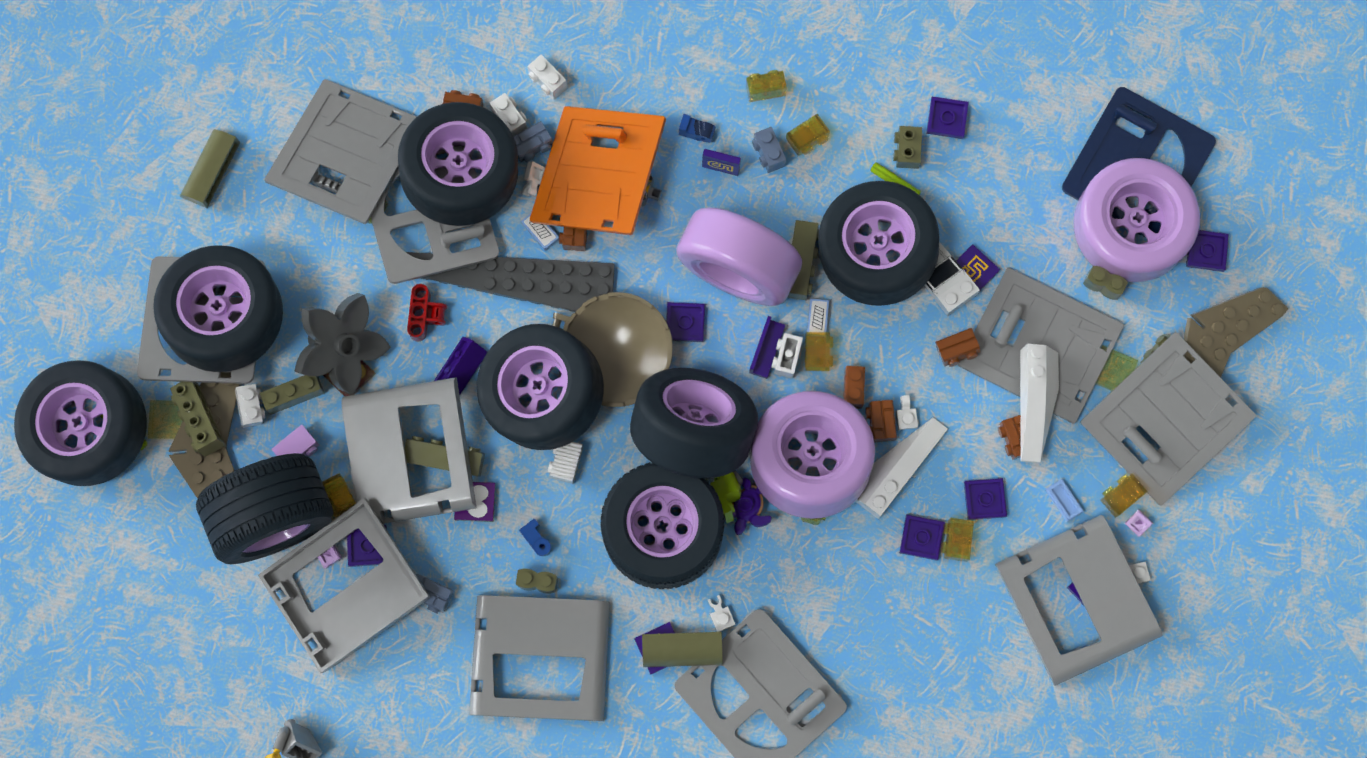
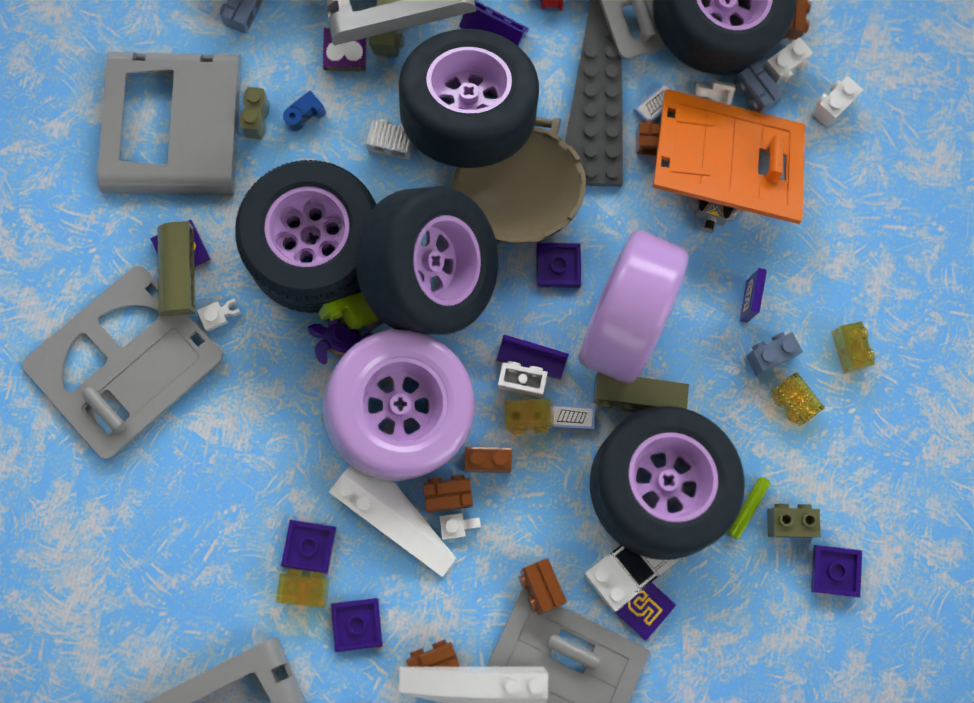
camera: 80 degrees right, 0 degrees up
(696, 129) = (791, 268): blue leg -> none

